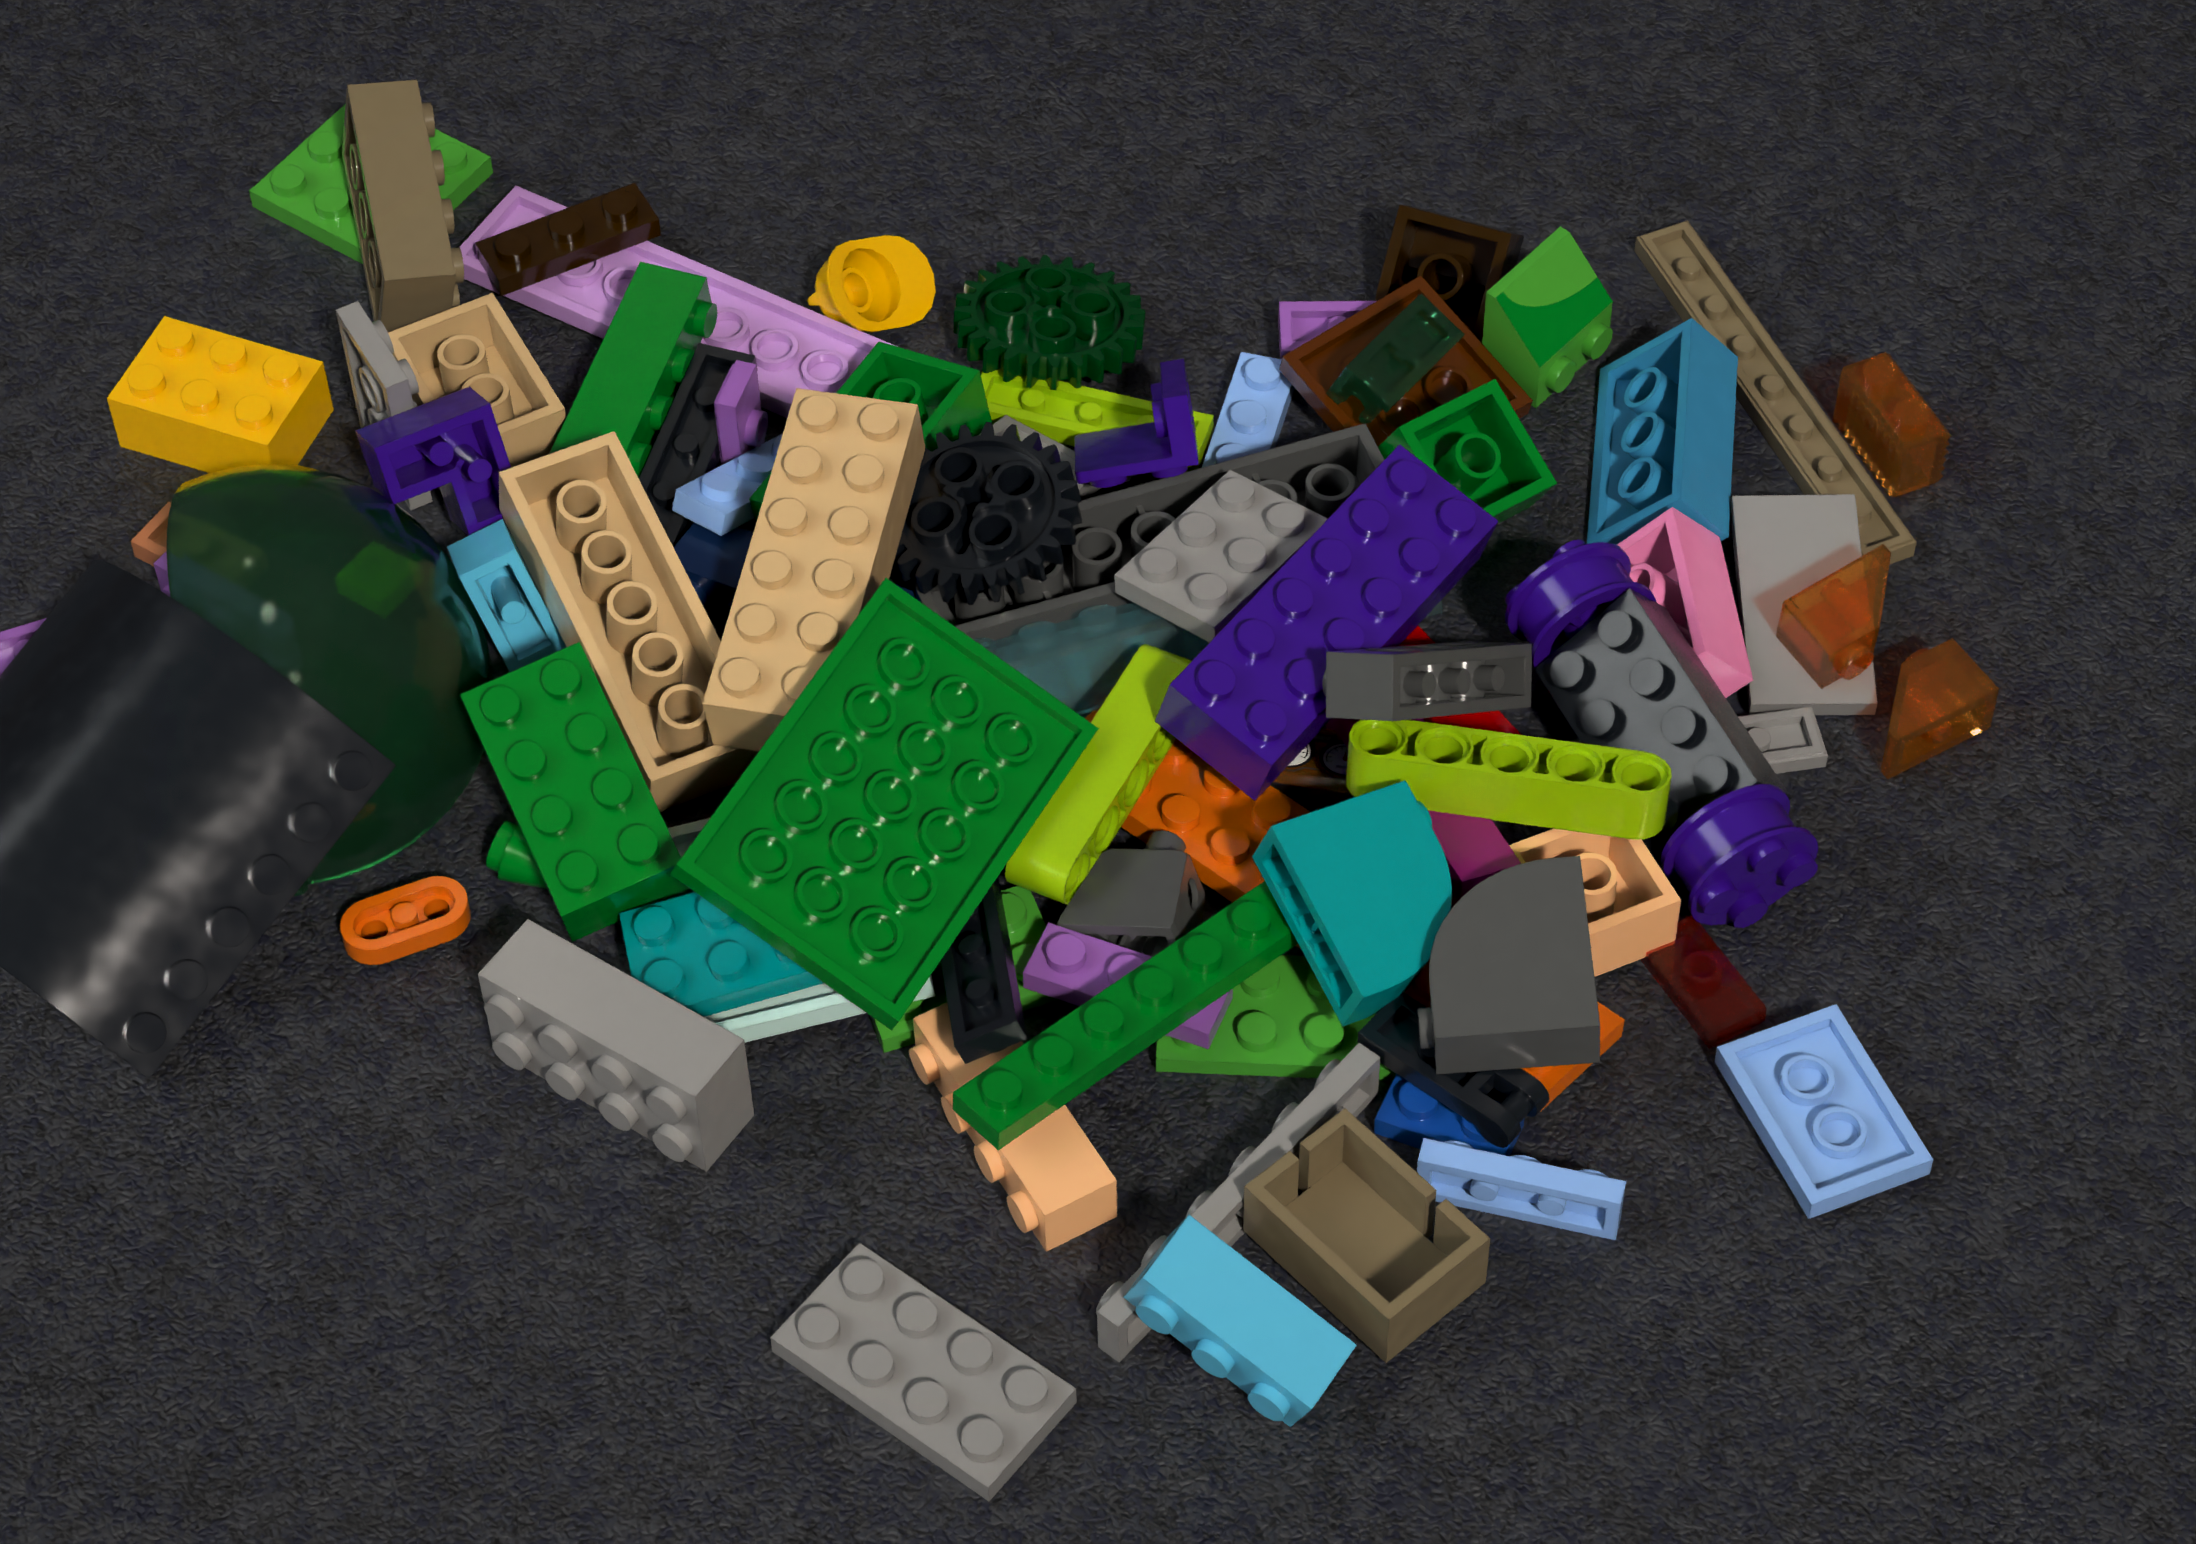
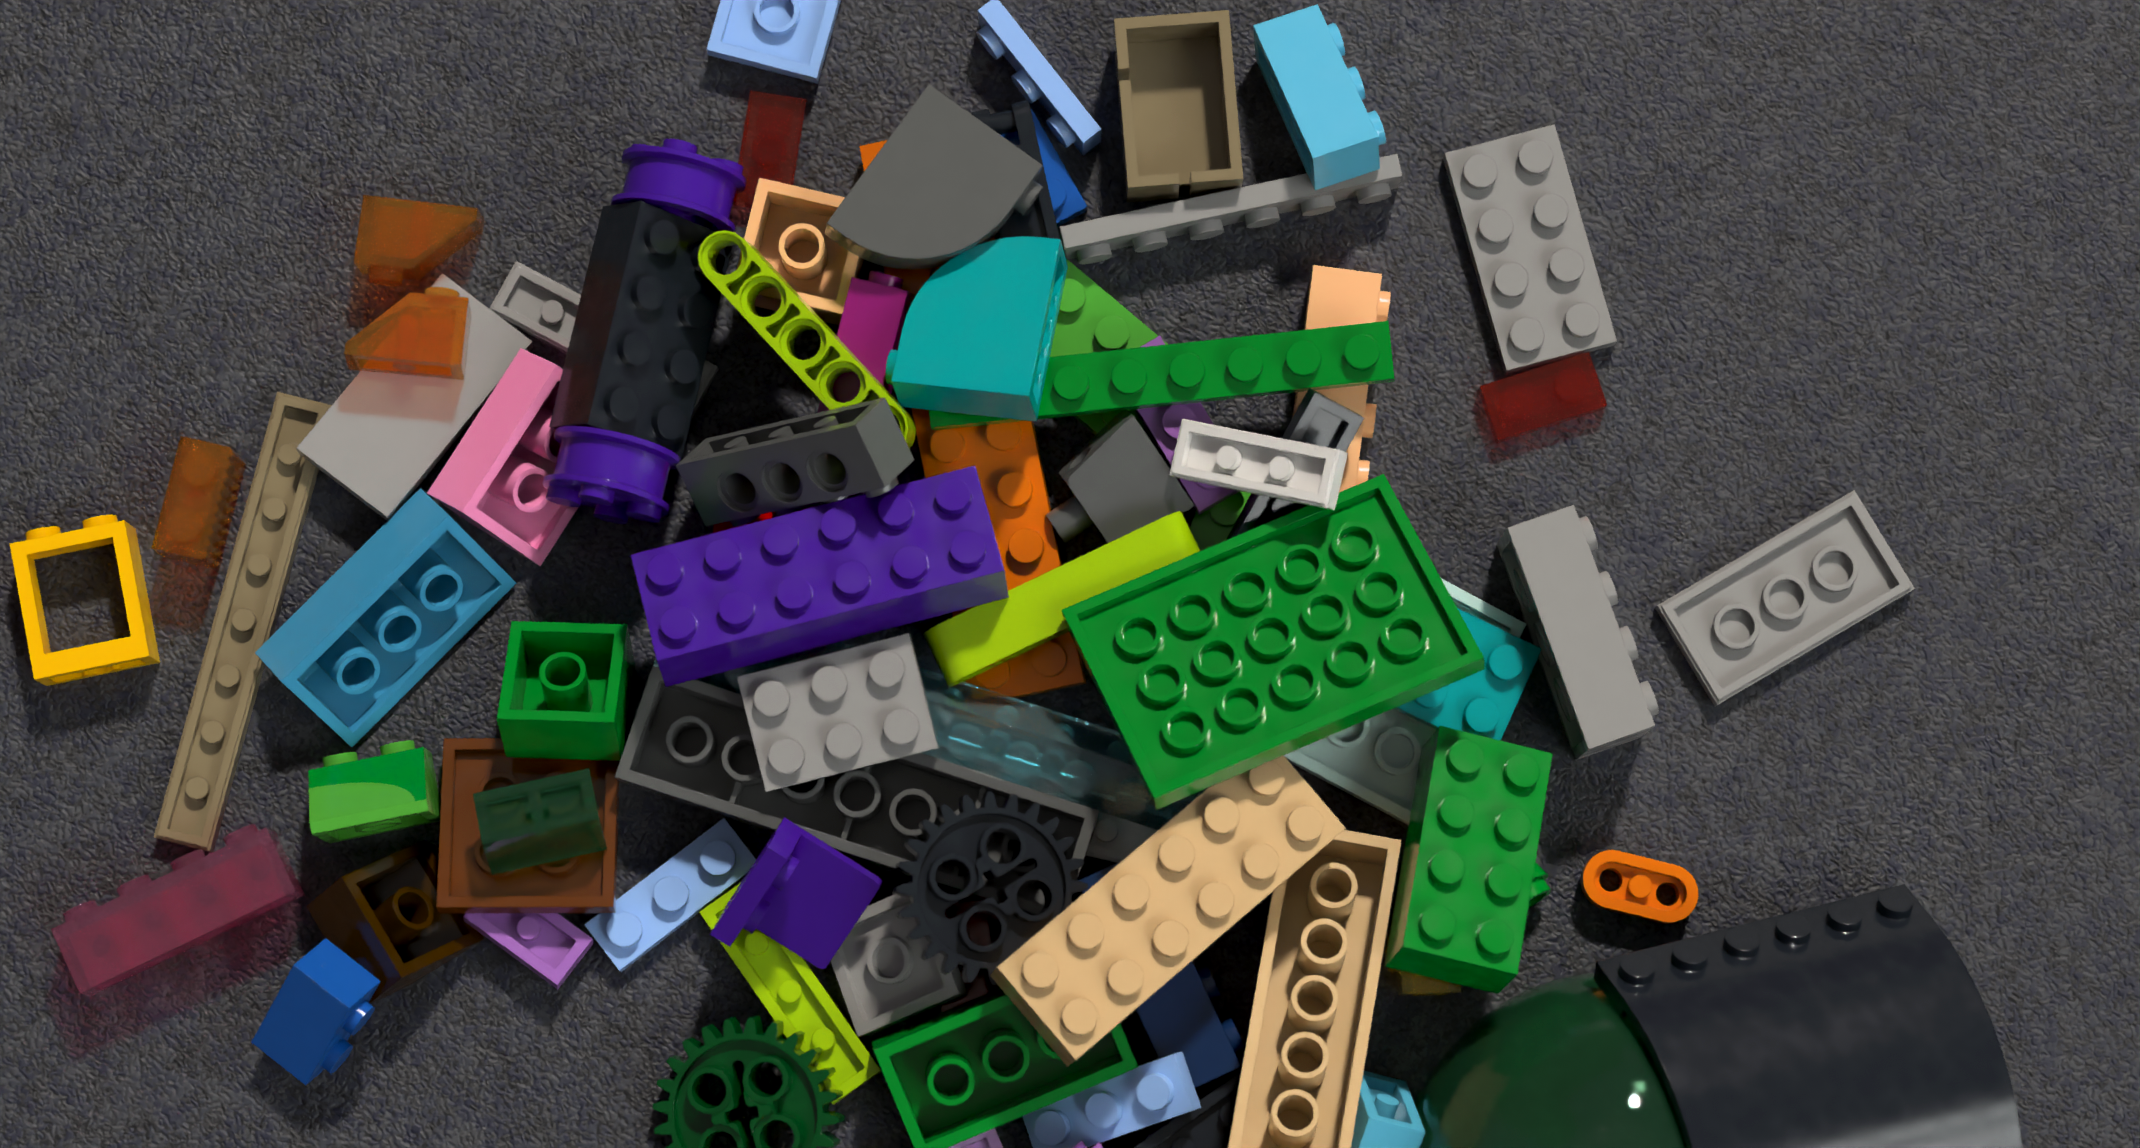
camera: 145 degrees left, 30 degrees up
(434, 1241) = (1784, 598): none -> light grey tile
(805, 1250) = (1542, 397): none -> clear red plate
(1020, 944) = (1258, 464): none -> white tile
(1443, 171) = (317, 1013): none -> blue brick
(1622, 169) = (177, 910): none -> clear pink brick
(1886, 262) = (98, 658): none -> yellow window

